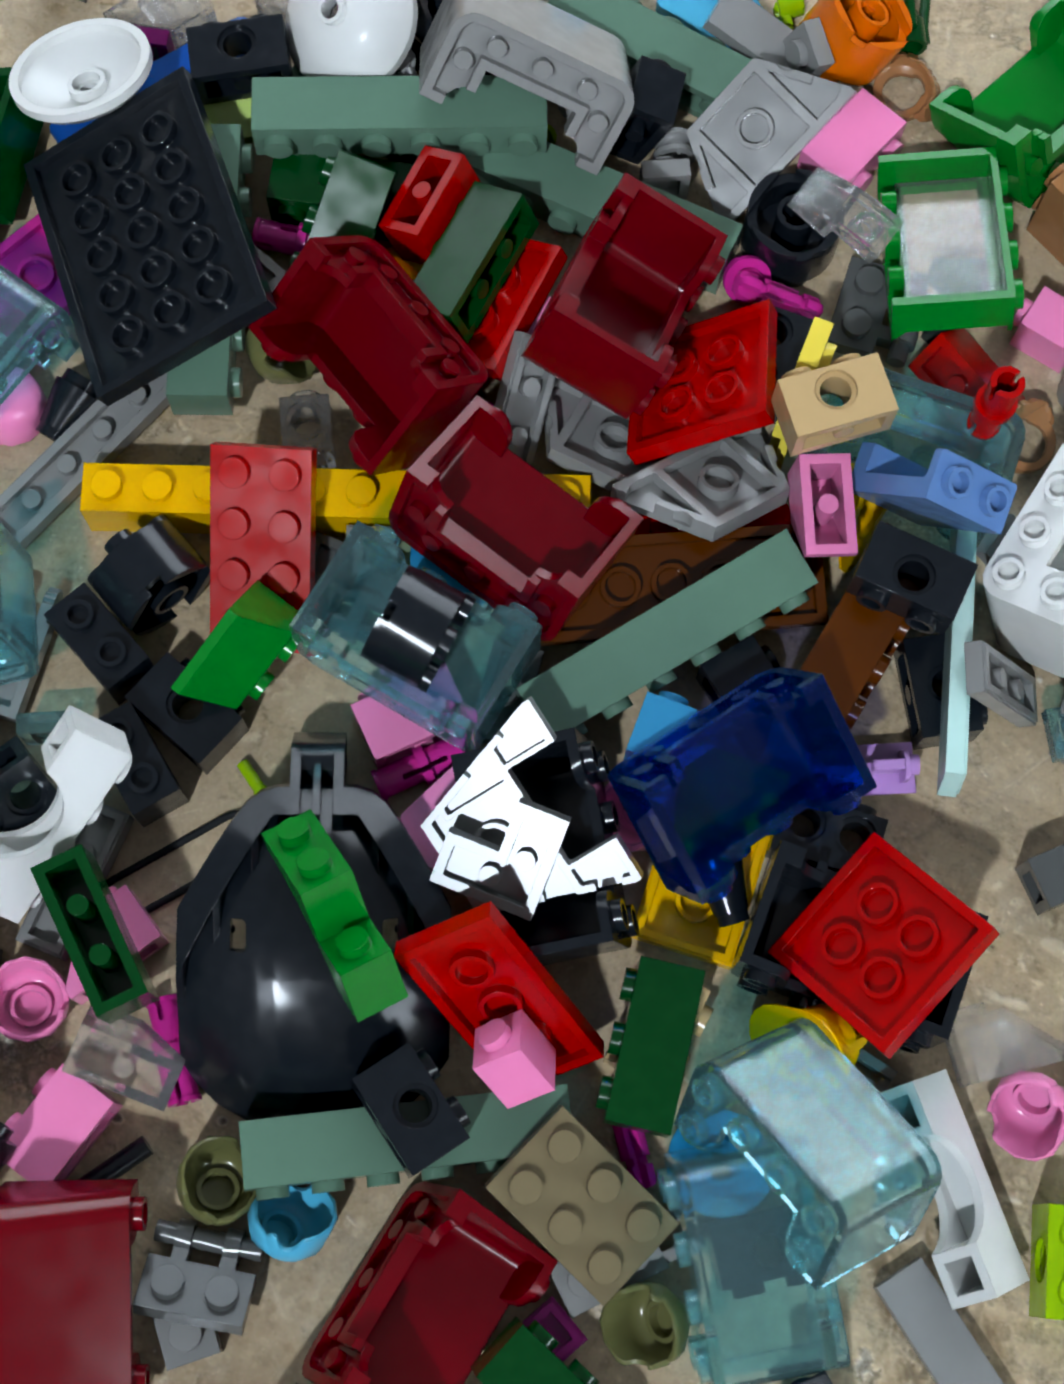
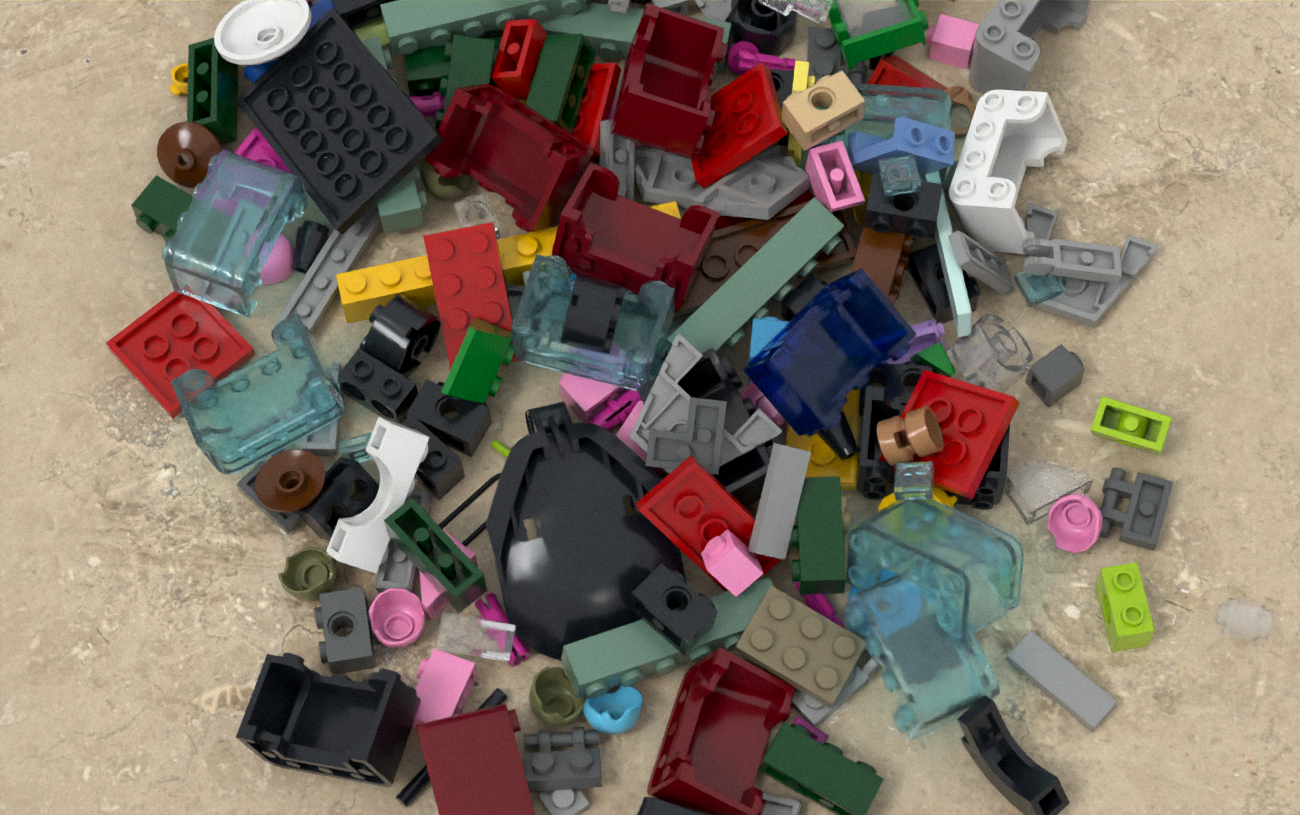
camera: 10 degrees left, 10 degrees down
(336, 914) = (586, 481): green arch -> none
(606, 989) = (779, 501): none -> light grey tile
(645, 1325) = (862, 712): olive hair -> none
(812, 1009) = (914, 480): none -> clear light blue tile
(828, 939) = (910, 436): none -> medium nougat wheel
(896, 806) = (937, 357): none -> green slope
(918, 536) = (899, 175): none -> clear light blue tile
(974, 1244) = (1061, 608): white arch -> none
(978, 832) = (992, 355): none -> clear brick
(995, 402) = (925, 82): red pin -> none

